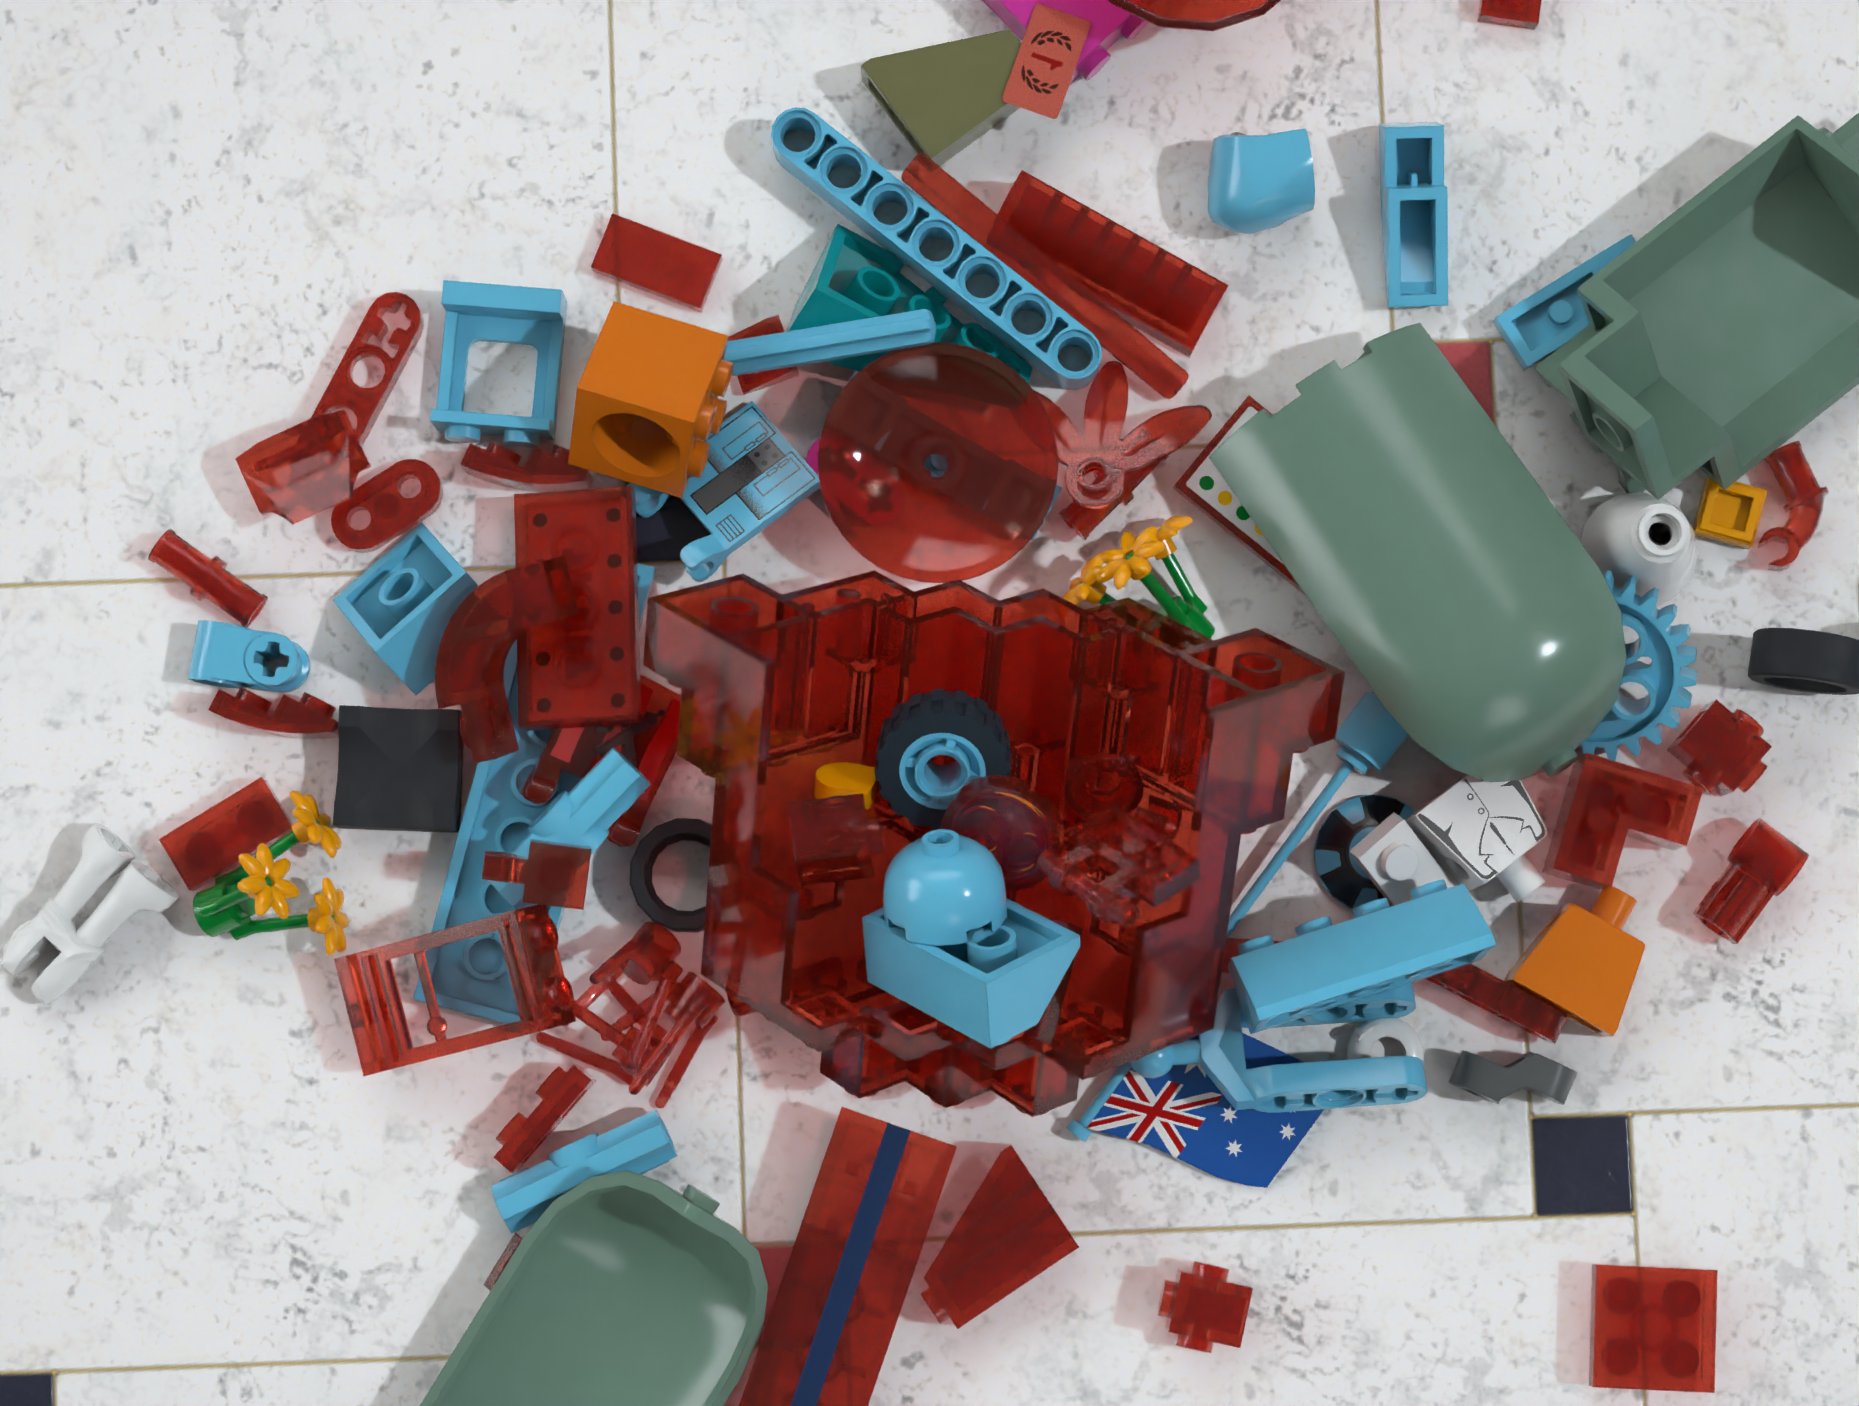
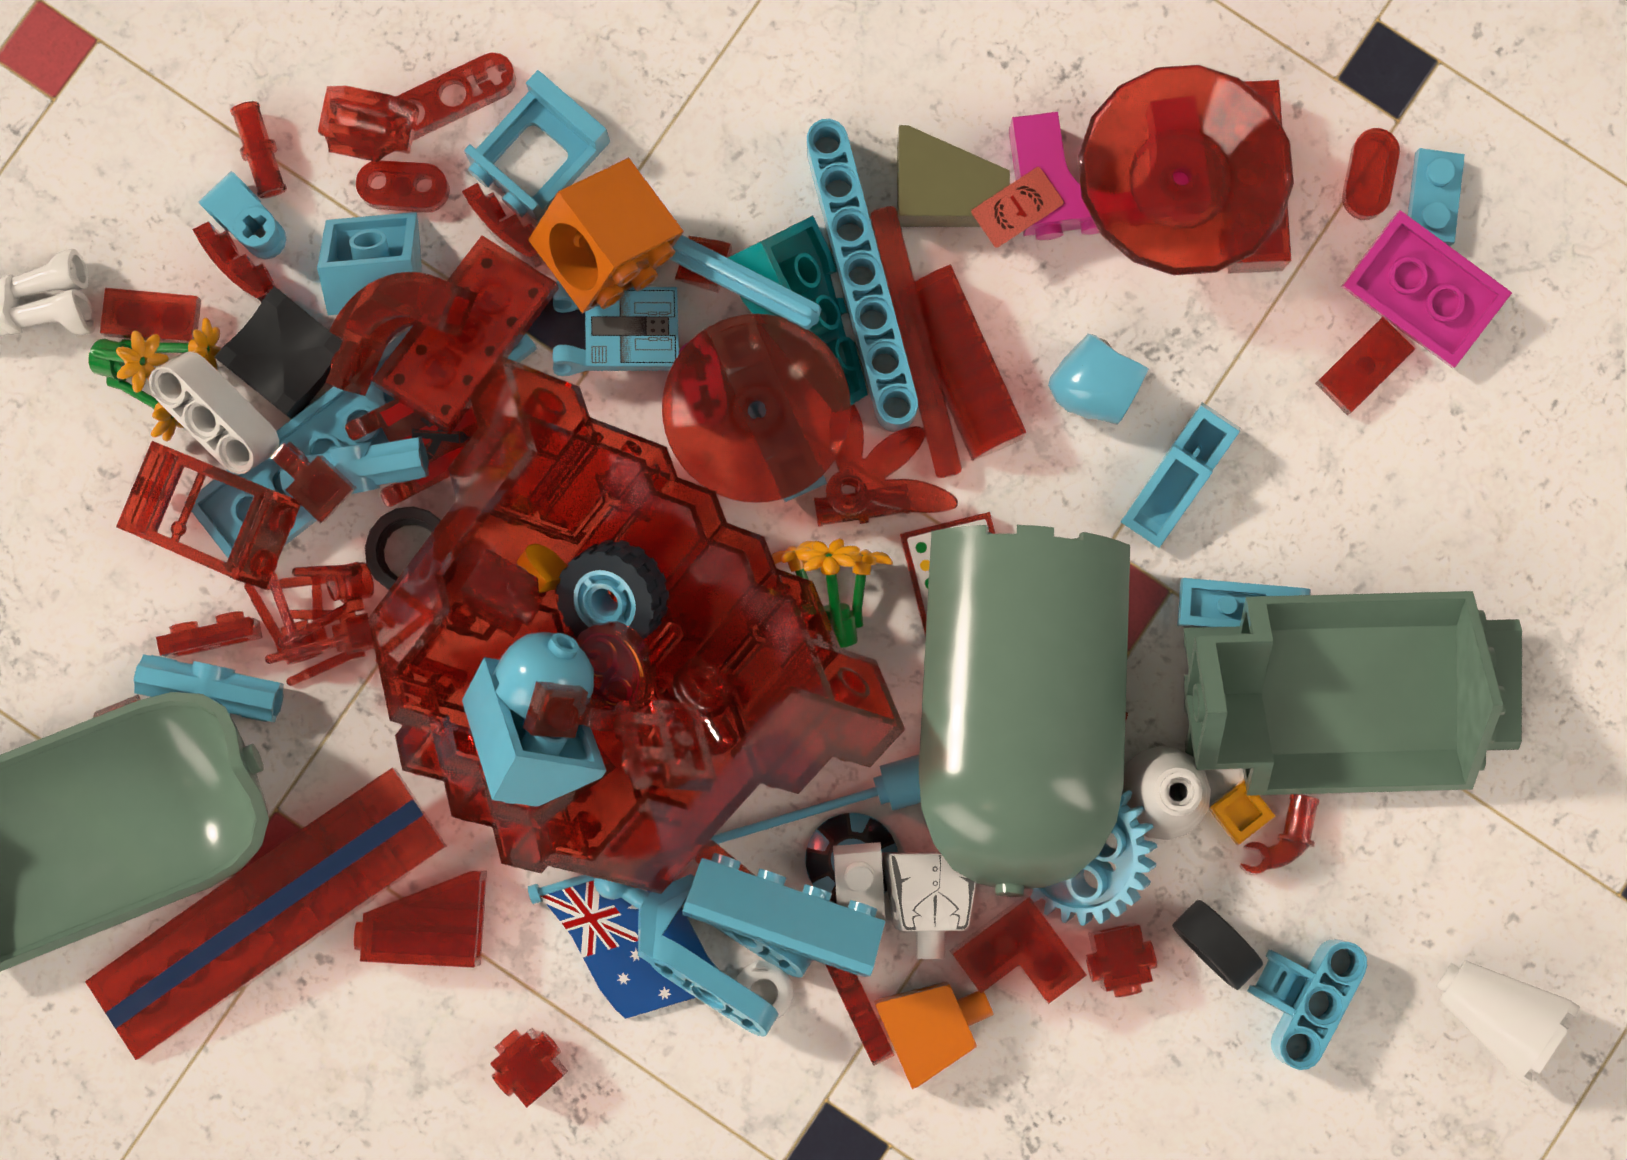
camera: 35 degrees right, 0 degrees up
(409, 875) = (214, 412): none -> white beam
(656, 262) = (682, 157): clear red tile -> none
(988, 906) = (560, 708): none -> clear red plate
(1529, 1073) = (841, 1070): dark grey piece -> none
(1758, 868) = (1089, 1052): clear red piece -> none

